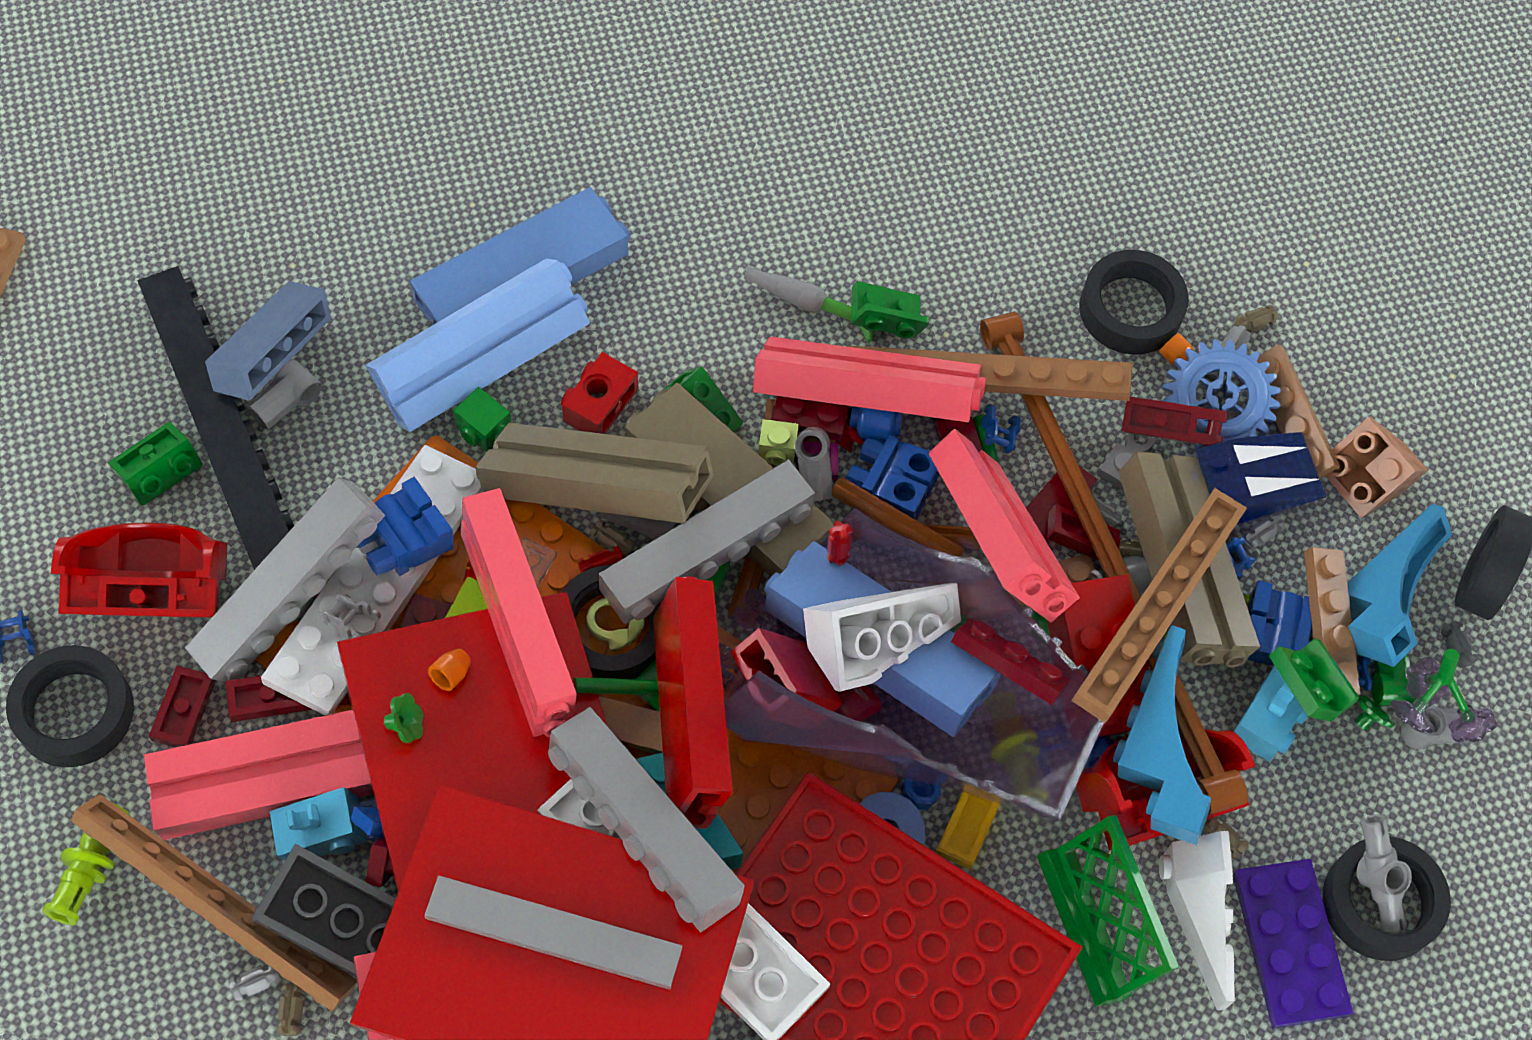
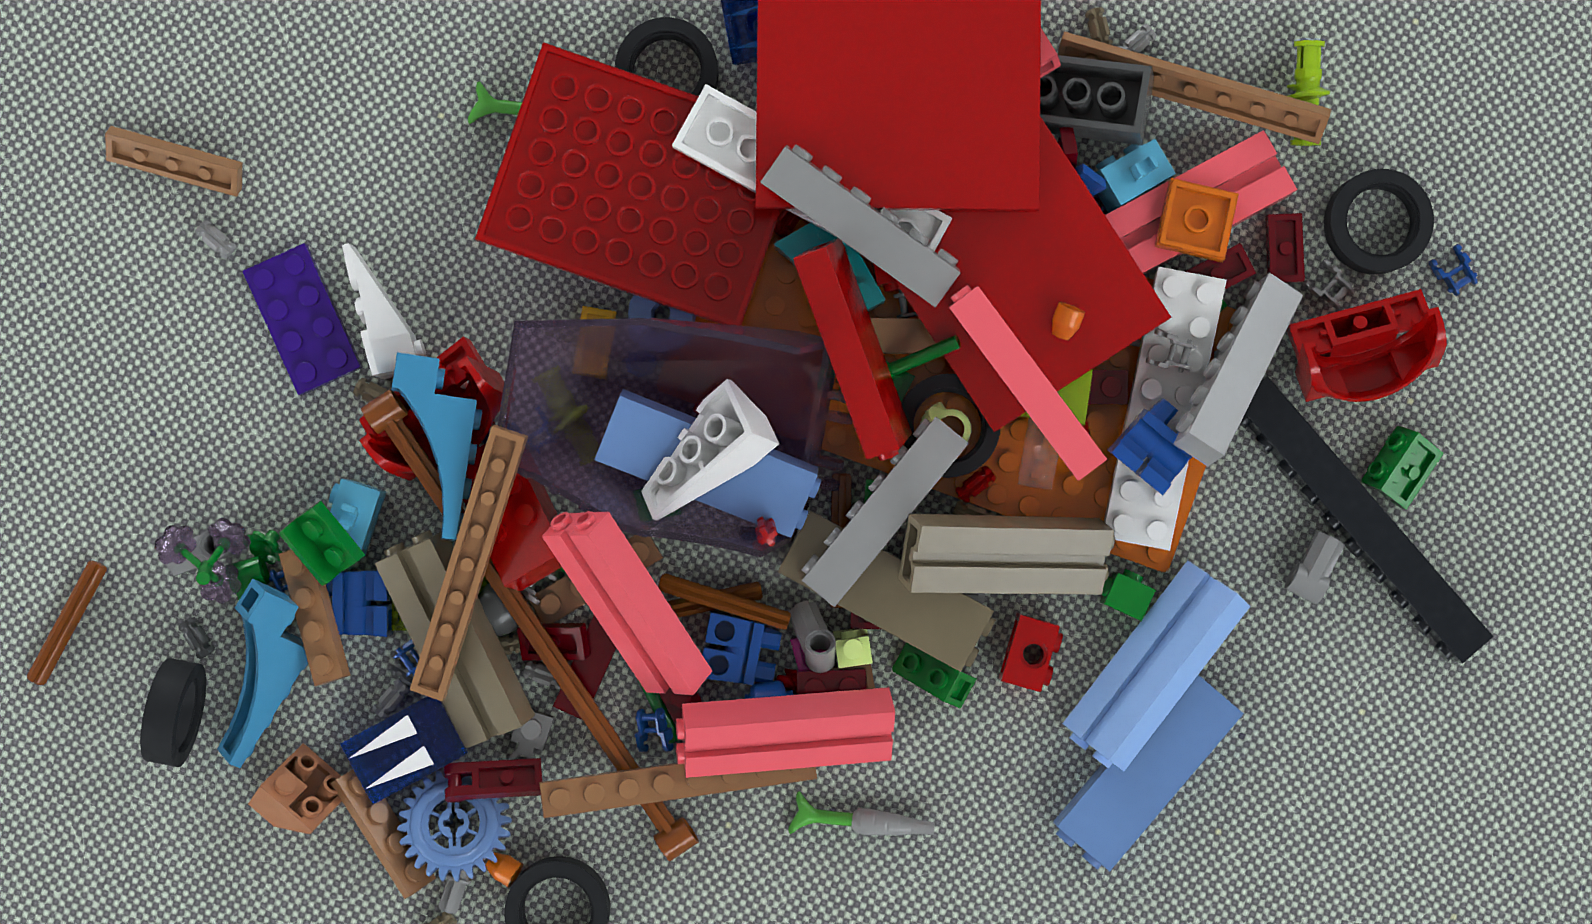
camera: 170 degrees right, 25 degrees up
(139, 665) = (1346, 287): none -> light grey piece
(267, 748) = (1196, 220): none -> orange tile
(268, 340) = (1347, 607): sand blue brick -> none
(405, 718) = (1087, 260): green plant -> none
(553, 932) = (905, 111): light grey tile -> none
(788, 664) = (785, 393): red brick -> none
(887, 310) = (790, 825): green bracket -> none
(1011, 660) = (588, 463): dark red plate -> none
(1086, 922) = (469, 274): green fence -> none
(1369, 941) = (188, 367): black tyre -> none
(1383, 873) = (234, 389): light grey pin -> none

